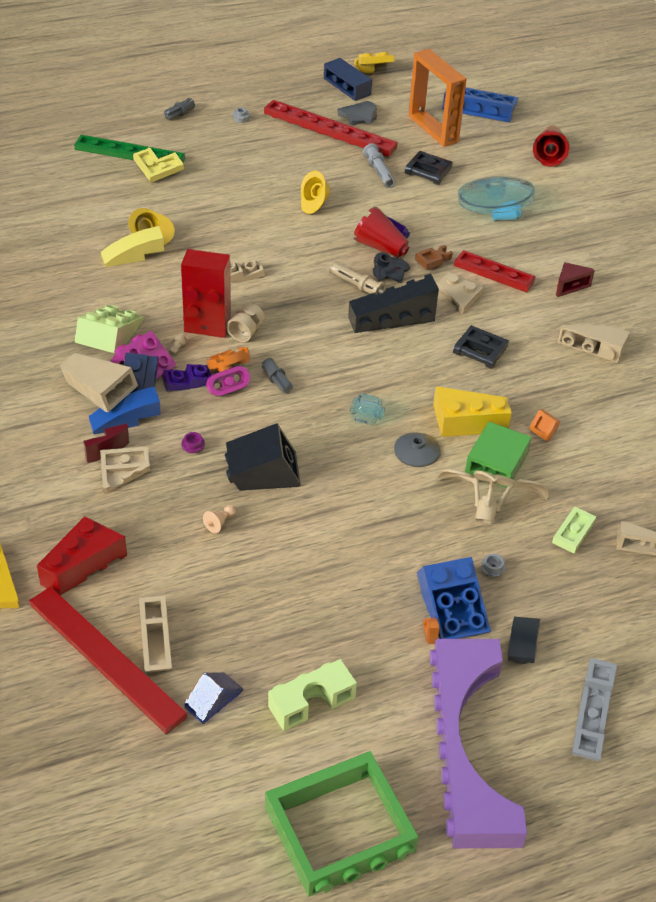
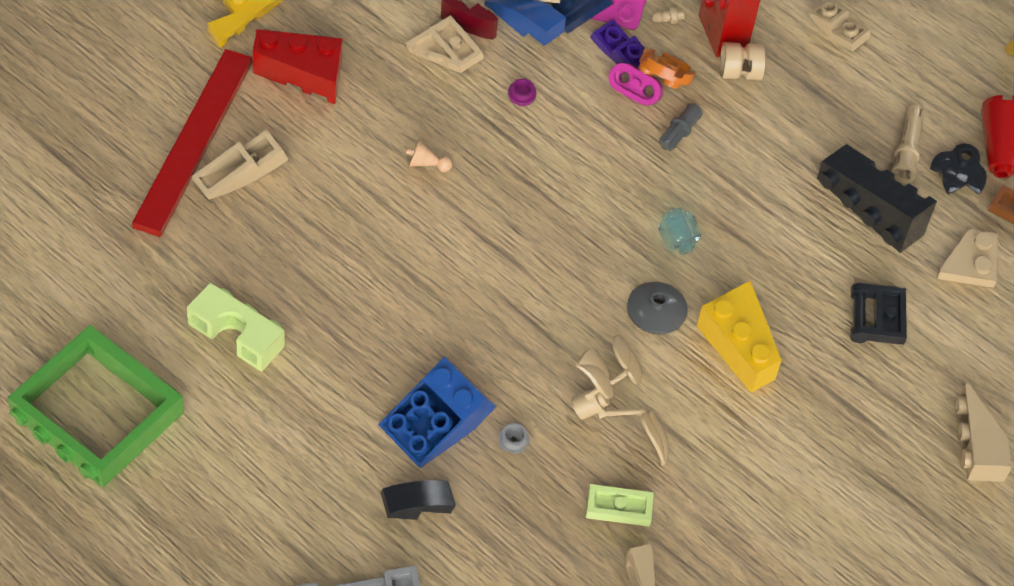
camera: 60 degrees right, 10 degrees up
(211, 695) = (196, 244): clear blue slope -> none
(262, 460) = (530, 164): black slope -> none
(431, 629) = (382, 406): orange tile -> none
(476, 811) = (335, 450): medium lavender arch -> none
(498, 451) = (694, 388): bright green brick -> none
(544, 425) = (777, 423): orange tile -> none

